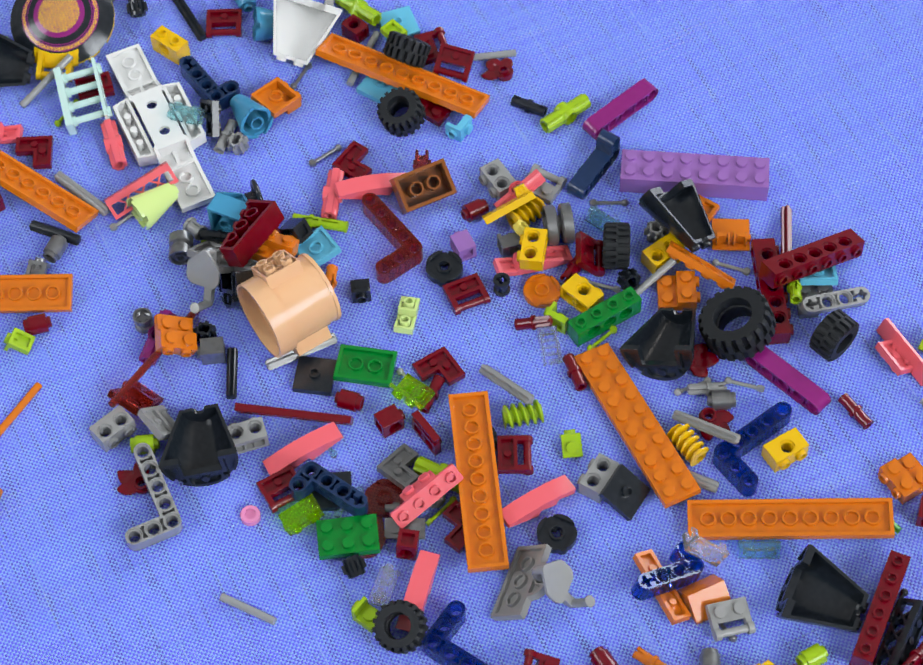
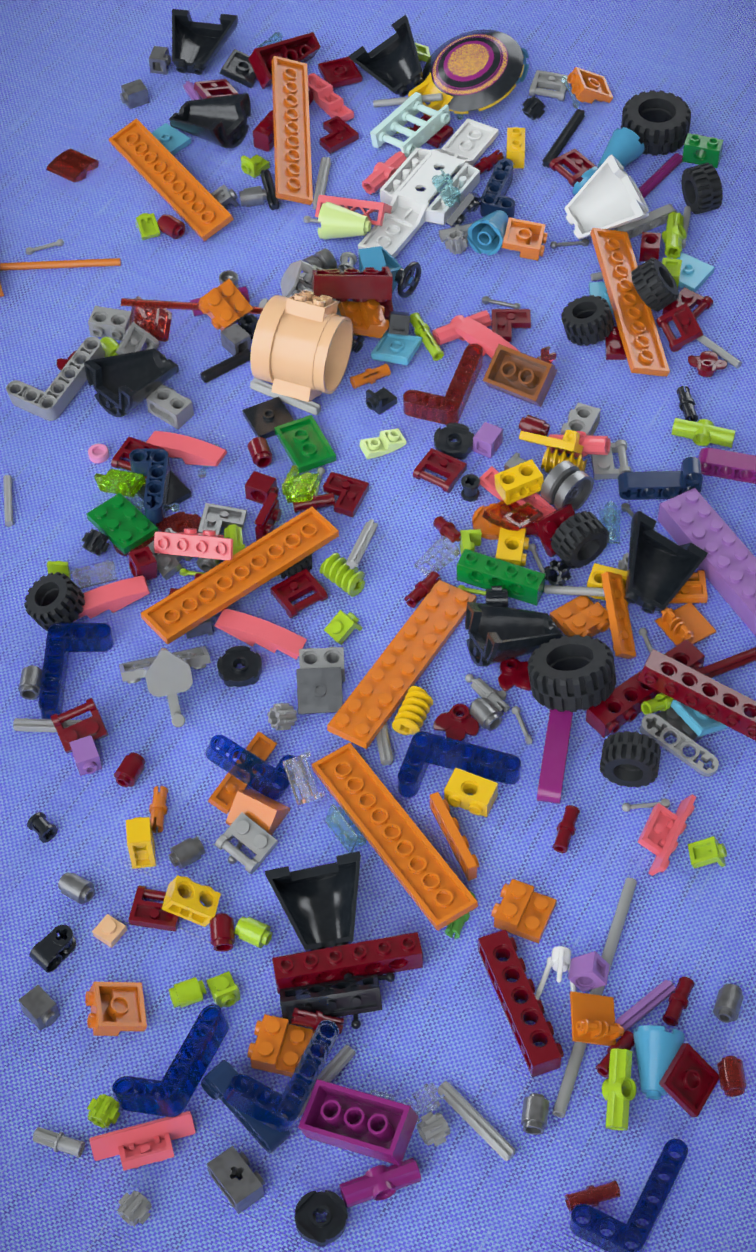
camera: 55 degrees right, 5 degrees down
(16, 227) = (254, 165): none -> lime bracket
(167, 73) = (487, 163): none -> dark red pin
(293, 414) = (216, 424): dark red tile -> none
(460, 130) = (613, 371): medium azure bracket -> none
(519, 227) = (540, 462): light yellow tile -> none
(557, 273) = (512, 516): none -> clear red slope
(622, 330) = (497, 596): none -> black gear
(630, 531) = (282, 716): none -> light grey gear
(706, 427) = (440, 714): light grey axle -> none
(815, 483) = (450, 829): none -> orange plate
(871, 341) = (626, 806): none -> light grey hinge

